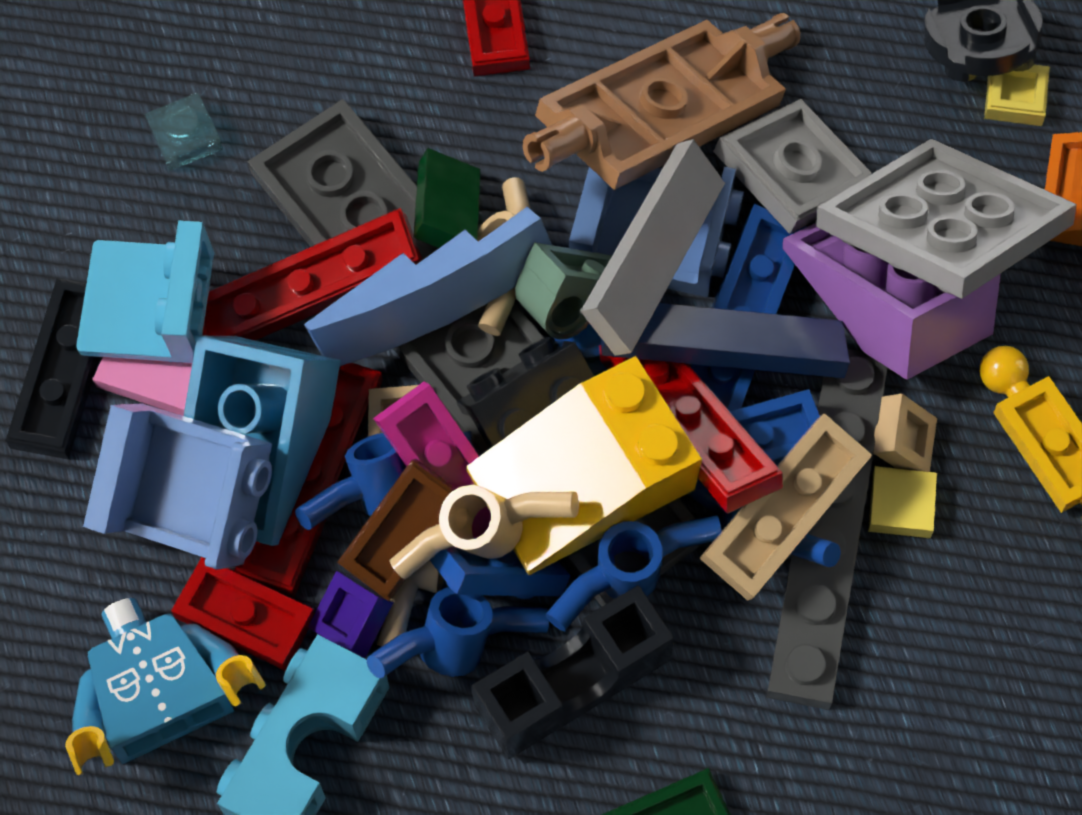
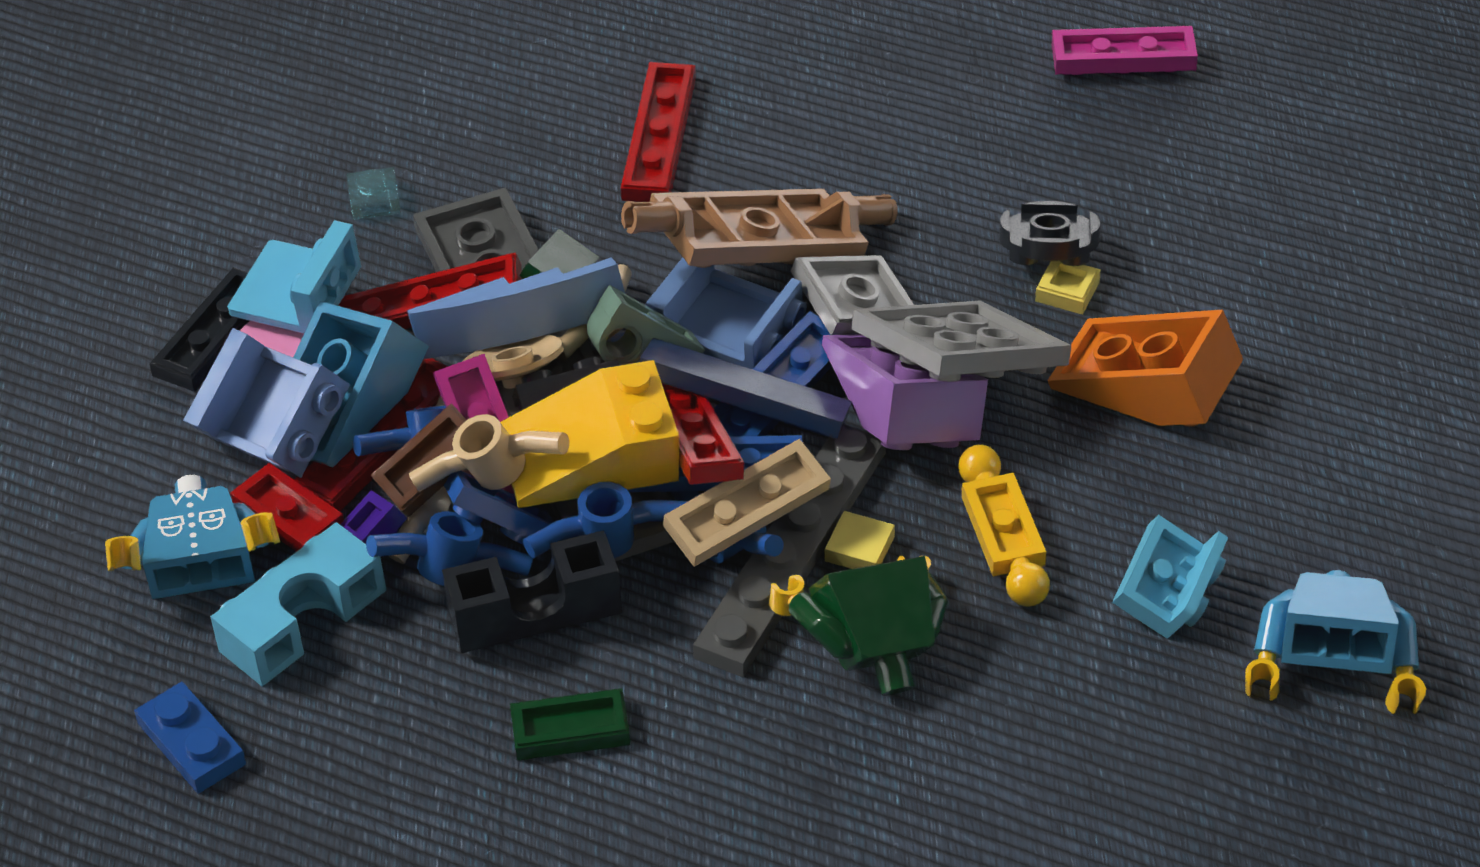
camera: 15 degrees right, 20 degrees down
(448, 358) = (520, 358): none -> tan dish
(653, 248) = (703, 303): light grey tile -> none
(905, 434) = (876, 490): tan plate -> none
(965, 615) = (870, 616): none -> dark green torso

